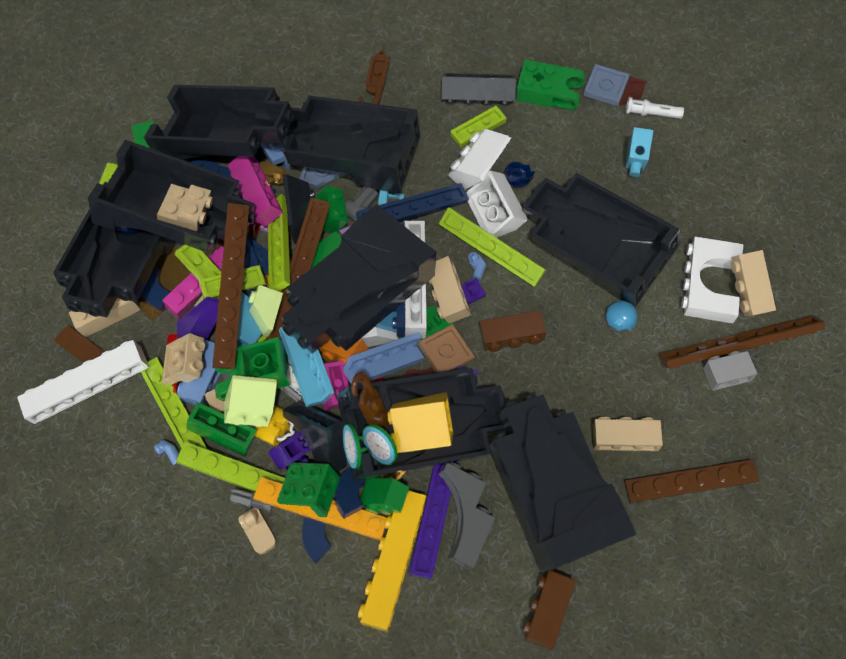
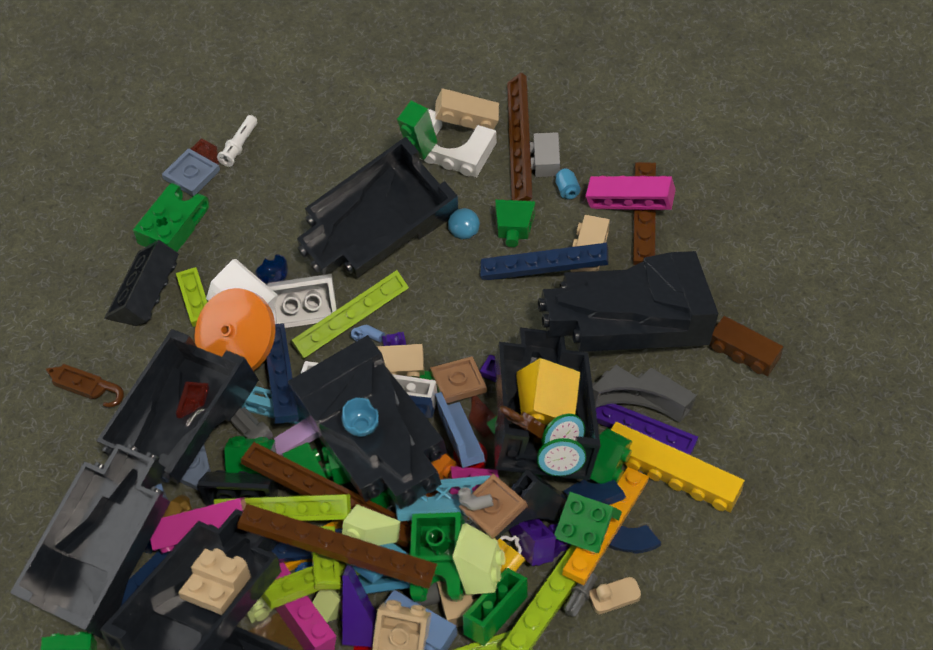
camera: 75 degrees left, 10 degrees down
(296, 382) = (473, 502): none -> light grey arm
(300, 401) = (505, 509): none -> medium nougat tile
(342, 264) = (359, 417): none -> dark azure hair
(368, 149) = (192, 398): none -> clear red tile
(442, 162) = (237, 323): none -> orange dish
(512, 331) = (454, 316): reddish brown brick -> none
(593, 397) = (544, 261): none -> dark blue plate
(637, 358) = (514, 220): none -> green torso
(638, 151) = (287, 161): medium azure torso -> none
(694, 238) = (418, 128): none -> green brick
(700, 398) = (567, 184): none -> dark azure brick
(704, 461) = (631, 192): none -> dark pink brick

